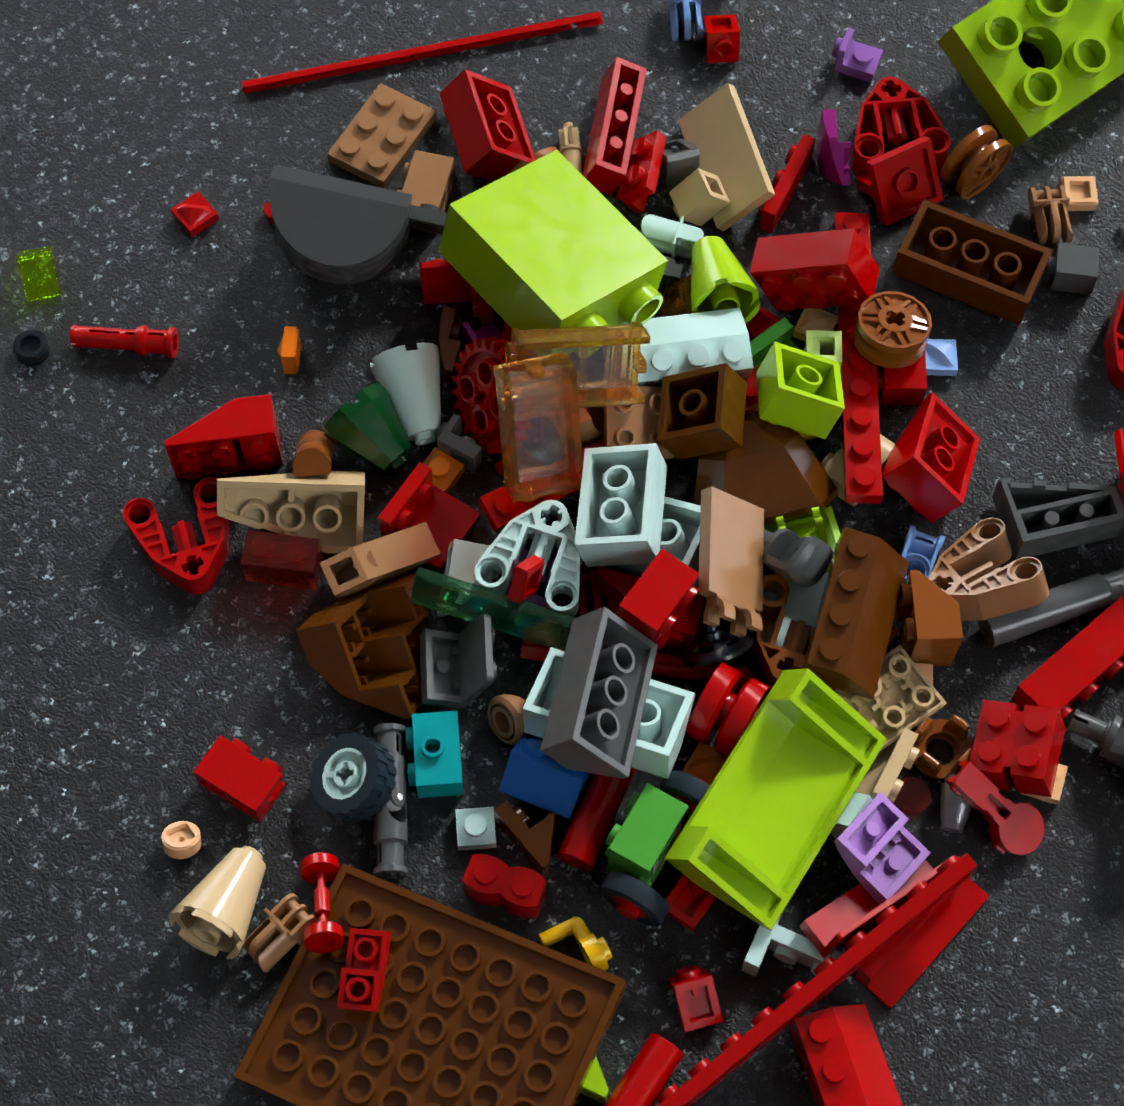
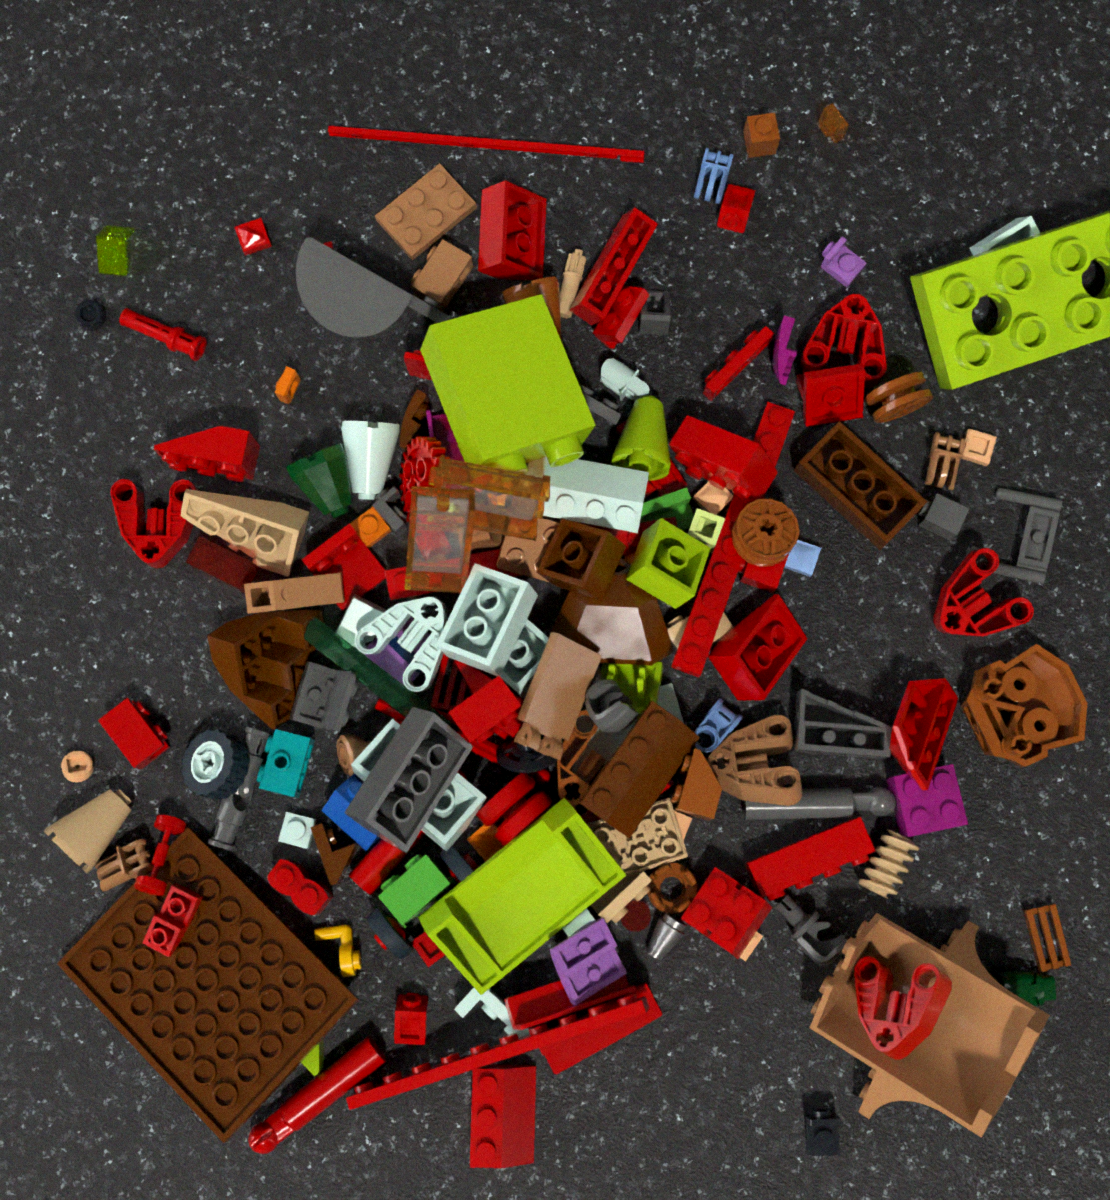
camera: 20 degrees right, 15 degrees up
(313, 454) = (272, 487): dark orange brick -> none
(526, 579) = (391, 657): red tile -> none
(676, 298) = (606, 441): clear orange plate -> none
(699, 197) = (659, 355): tan brick -> none
(730, 152) = (694, 325): tan tile -> none
(1022, 826) = (705, 975): red piece -> none

